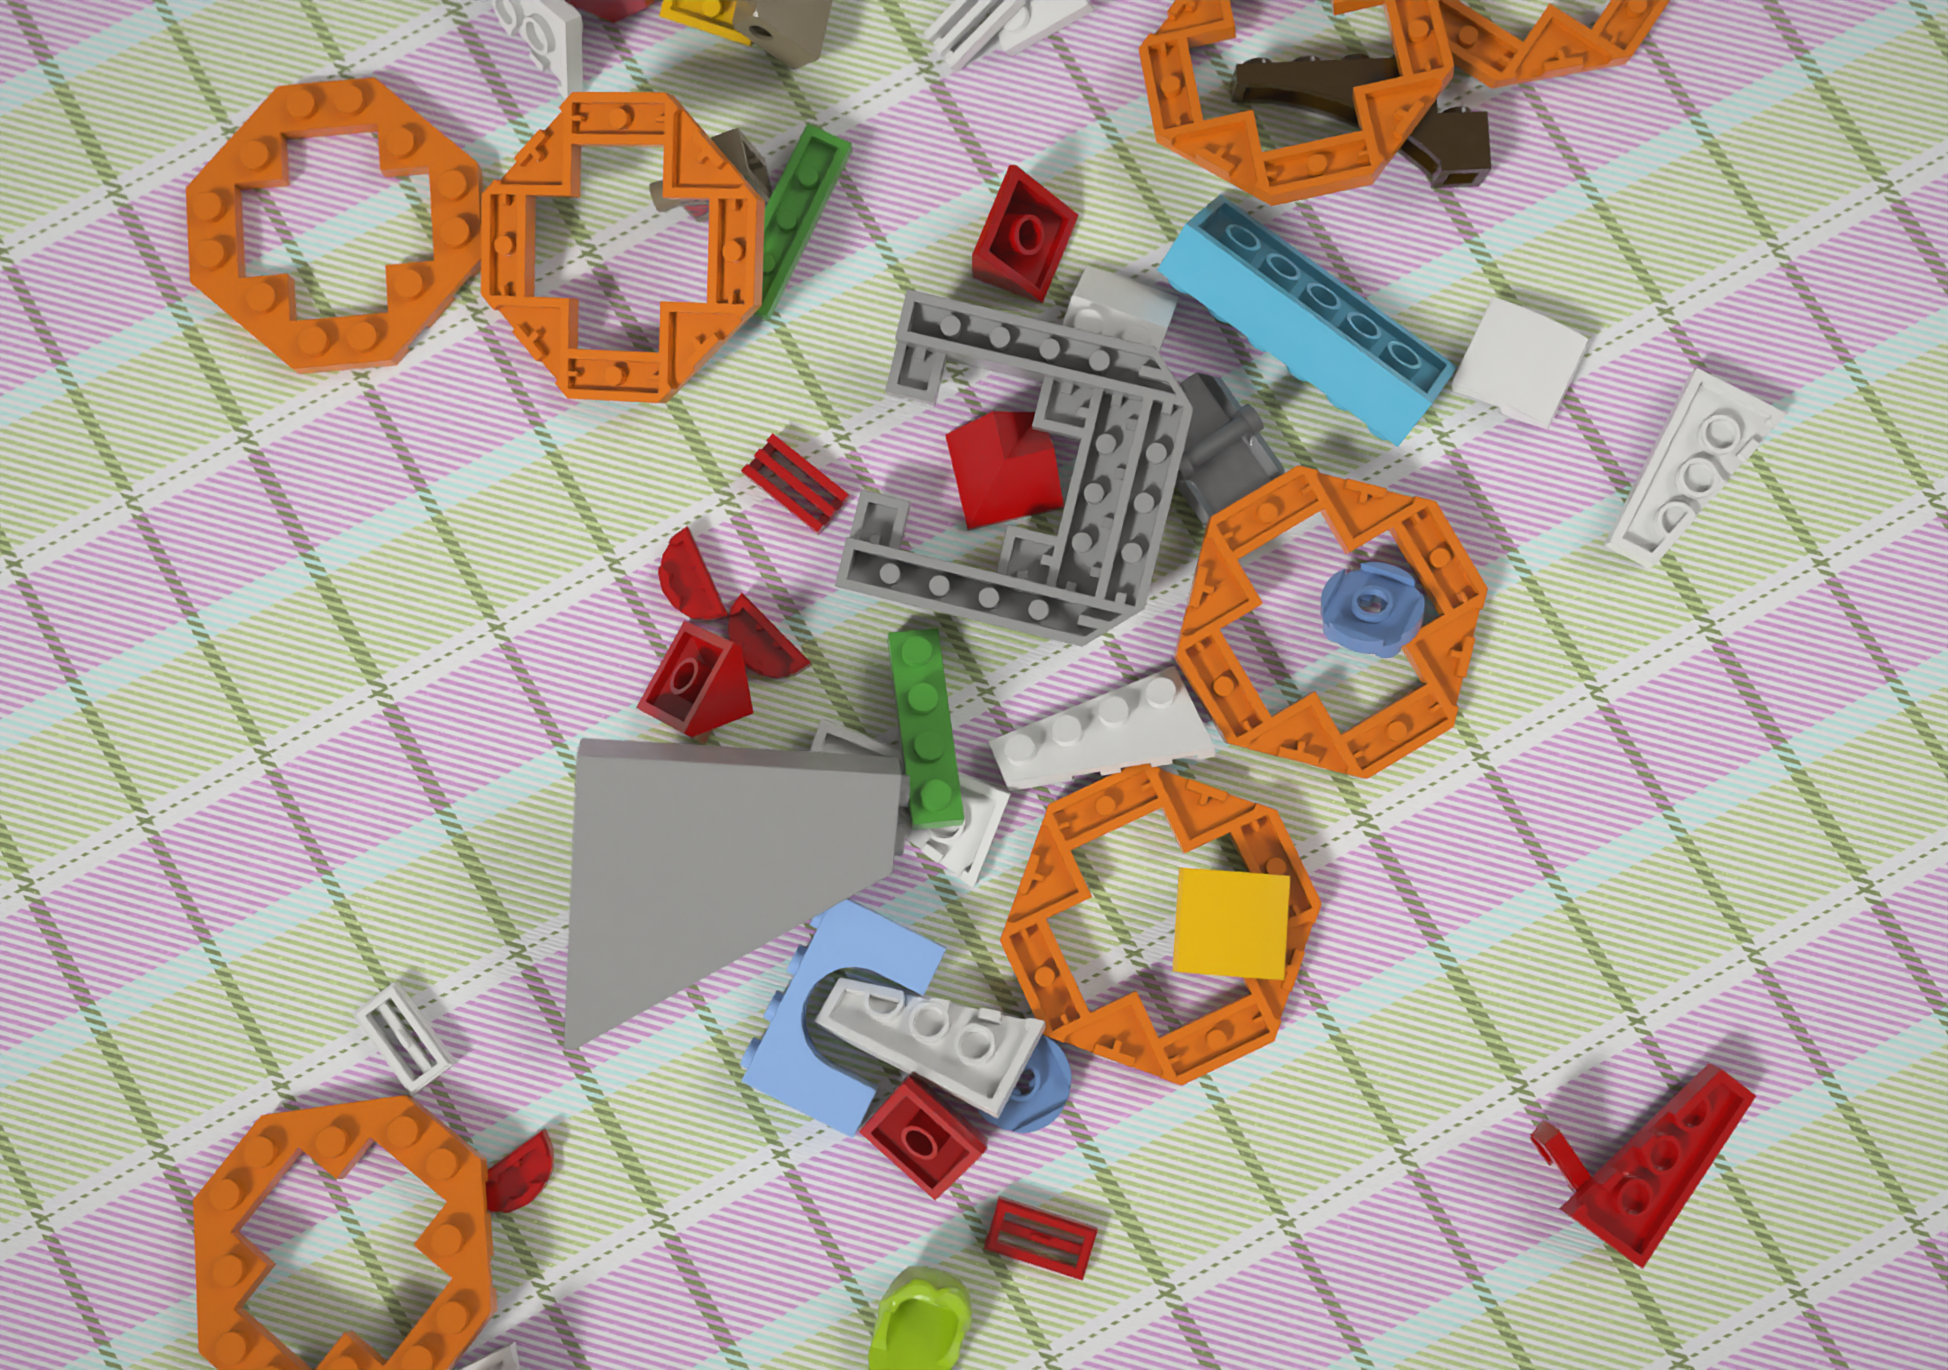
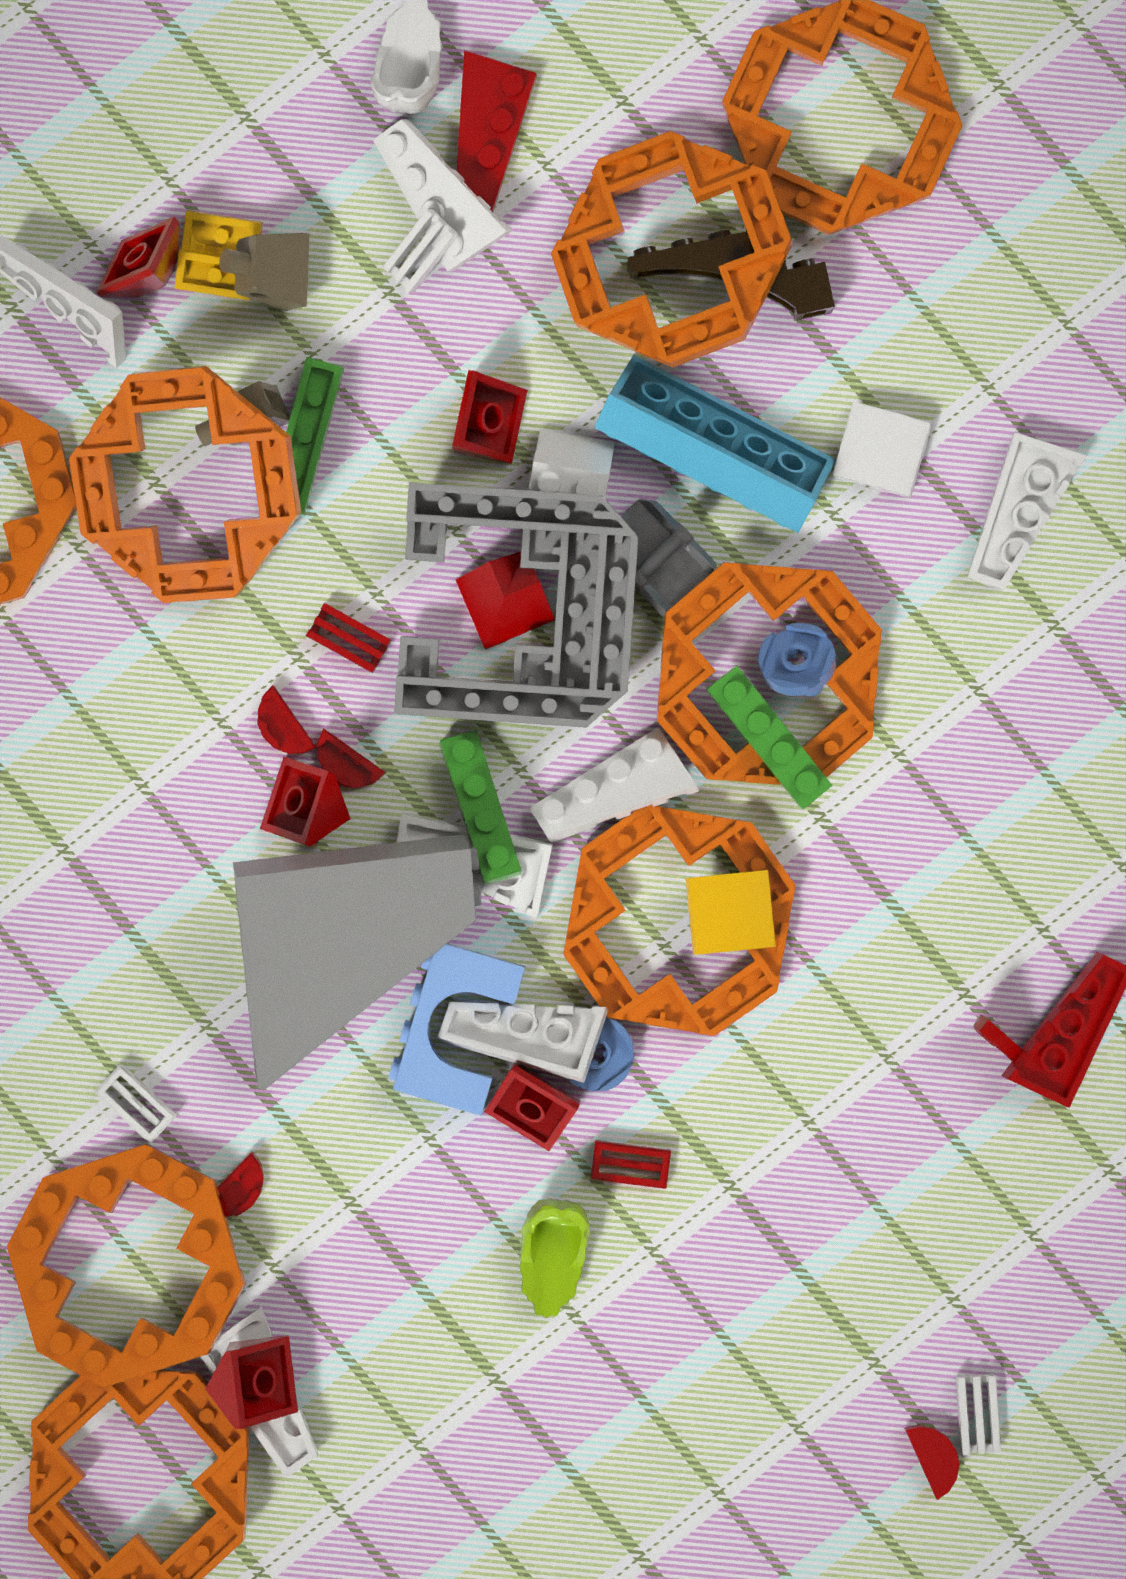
camera: 10 degrees left, 5 degrees up
(1319, 702) = (769, 737): none -> bright green plate

